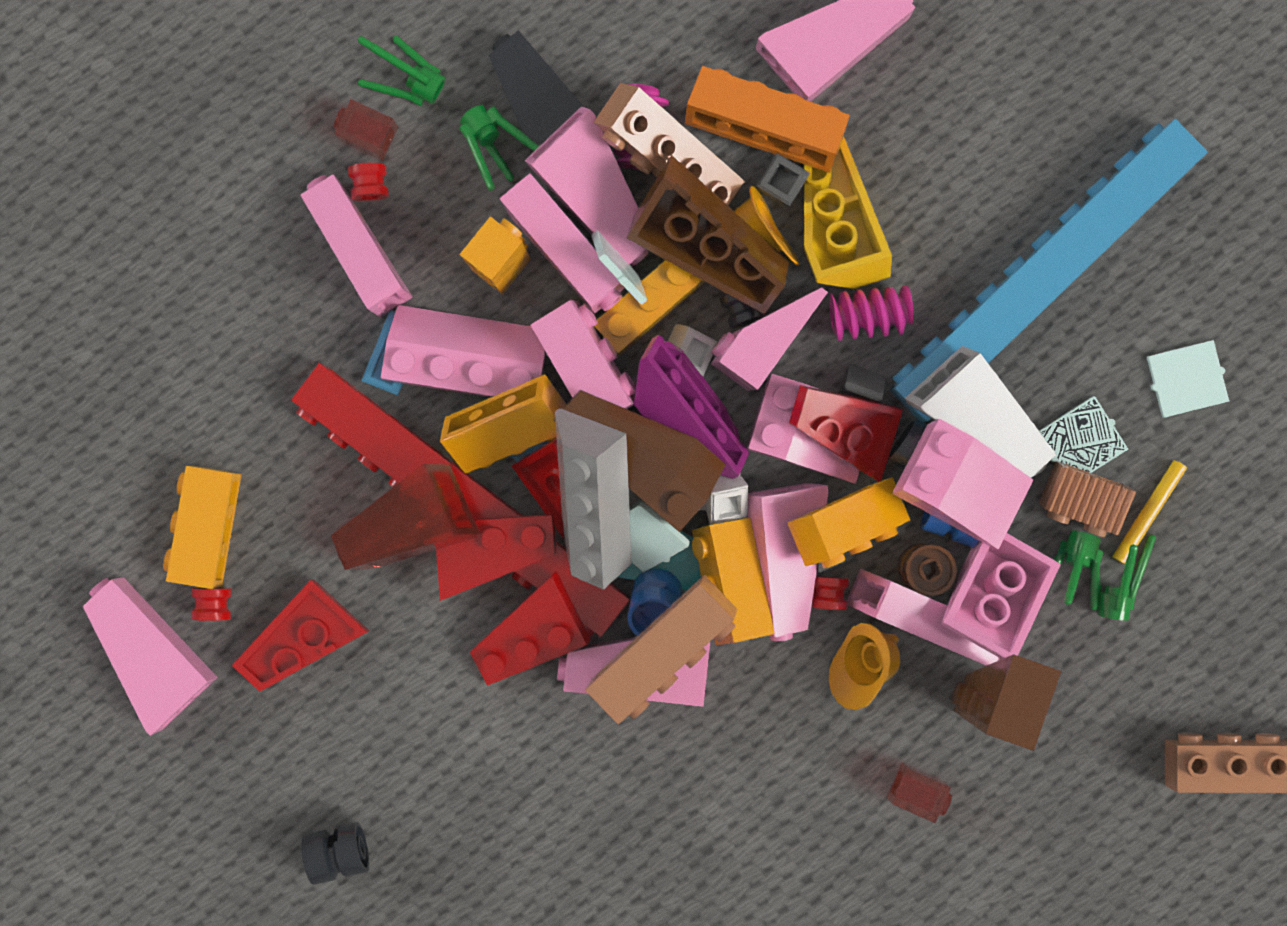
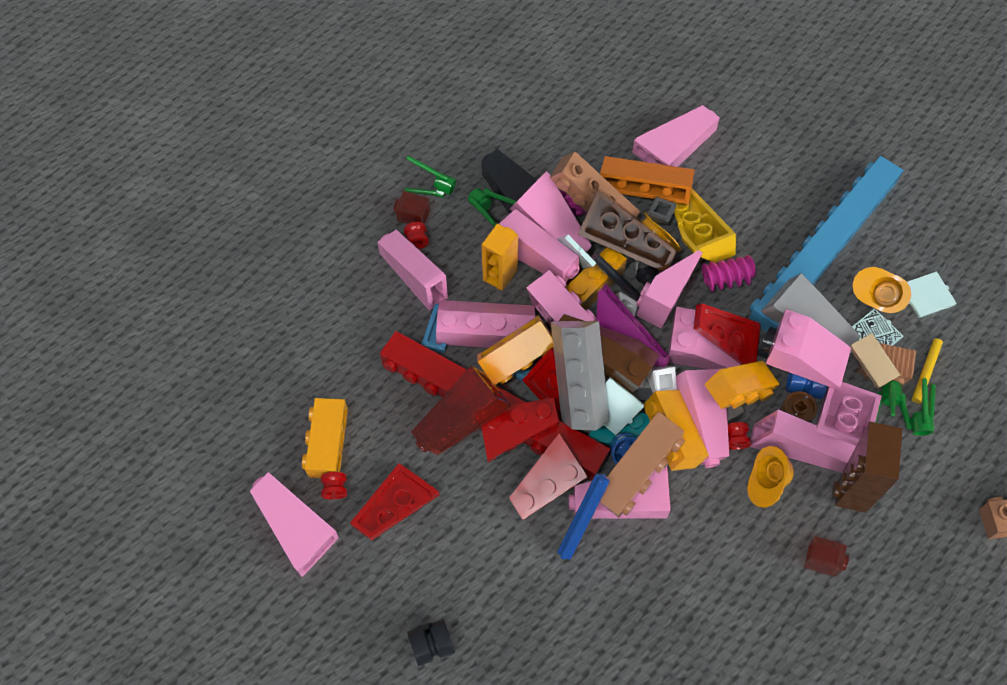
camera: 10 degrees left, 25 degrees down
(570, 712) = (583, 516): none -> blue axle
(682, 309) = (616, 277): none -> black bar
(1065, 504) = (874, 361): none -> tan tile
(1111, 375) = (881, 290): none -> light orange piece

